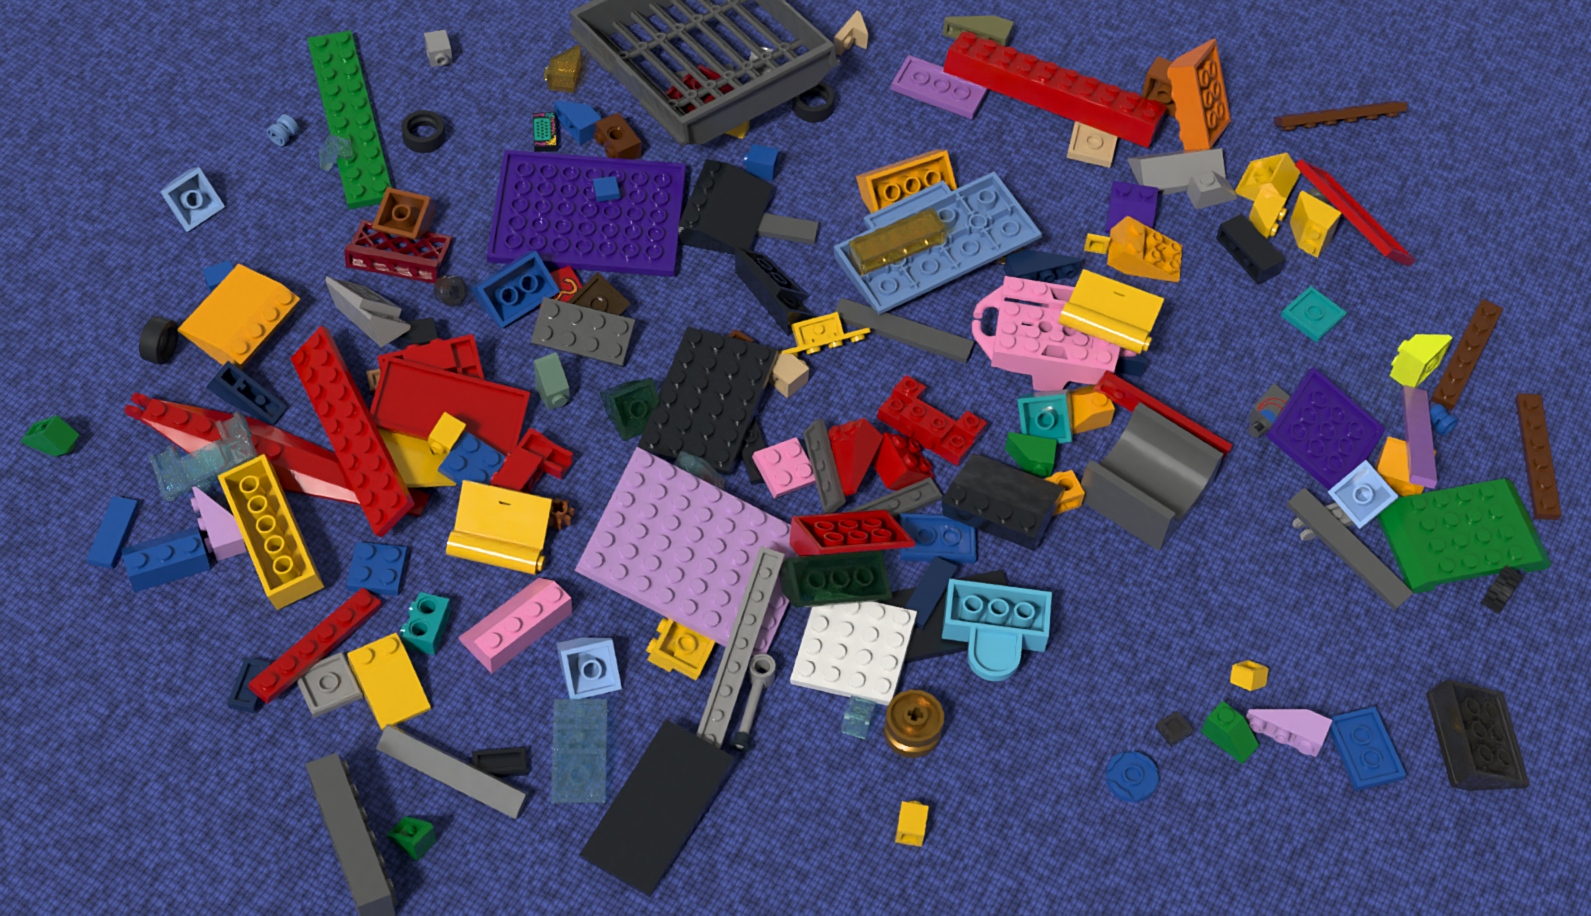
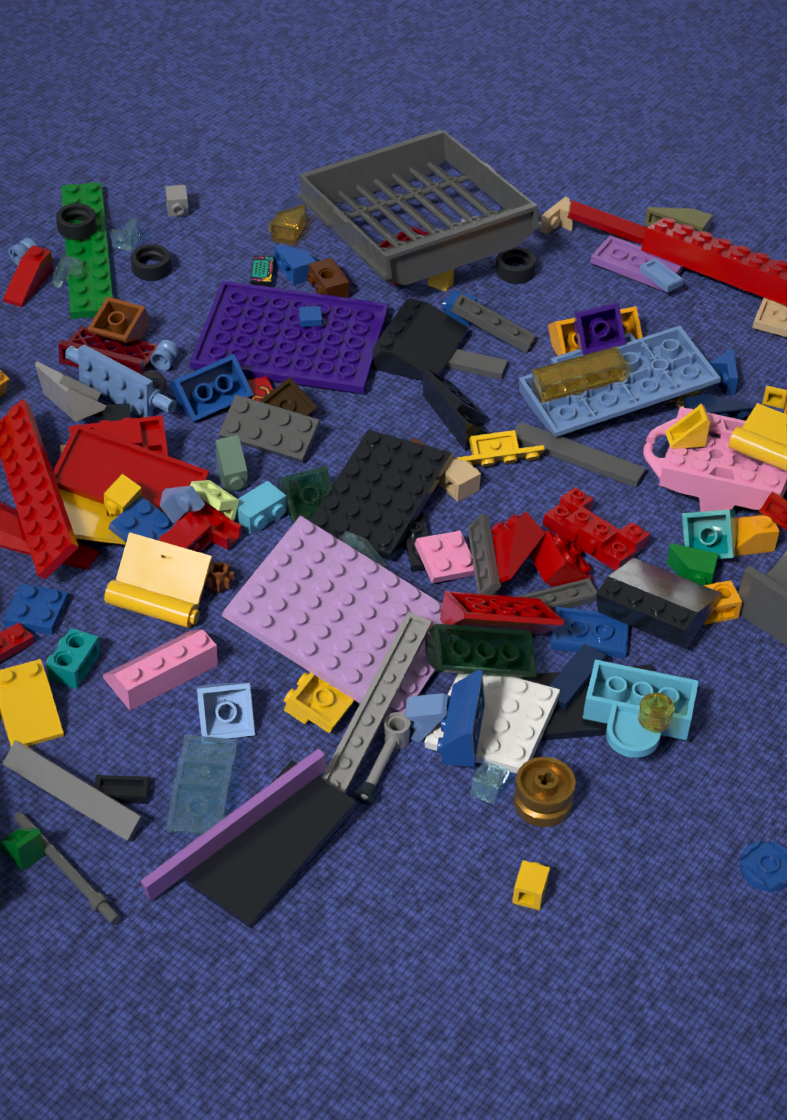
camera: 10 degrees right, 10 degrees down
(294, 161) = (29, 276): none -> red slope
(334, 101) = (76, 230): none -> black tyre
(393, 100) = (126, 238): none -> clear light blue bracket
(416, 292) = (118, 382): none -> medium blue plate
(458, 249) = (164, 355): none -> medium blue wheel
(497, 886) = (96, 899): none -> dark grey bar
(505, 434) = (180, 500): none -> medium blue slope
(542, 424) = (216, 497): none -> yellowish green panel
(587, 428) = (260, 507): none -> medium azure brick
(620, 795) = (234, 824): none -> medium lavender tile
(789, 653) = (425, 714): none -> medium blue slope
(799, 179) = (493, 323): none -> dark grey tile
(827, 660) = (463, 721): none -> blue slope
(903, 39) = (606, 222): none -> red tile
(912, 185) = (599, 328): none -> dark purple slope
(967, 103) = (661, 275): none -> medium blue tile
(1015, 636) = (656, 712): none -> clear yellow head
(1017, 306) = (690, 430): none -> yellow slope
(1043, 214) = (726, 368): none -> blue slope

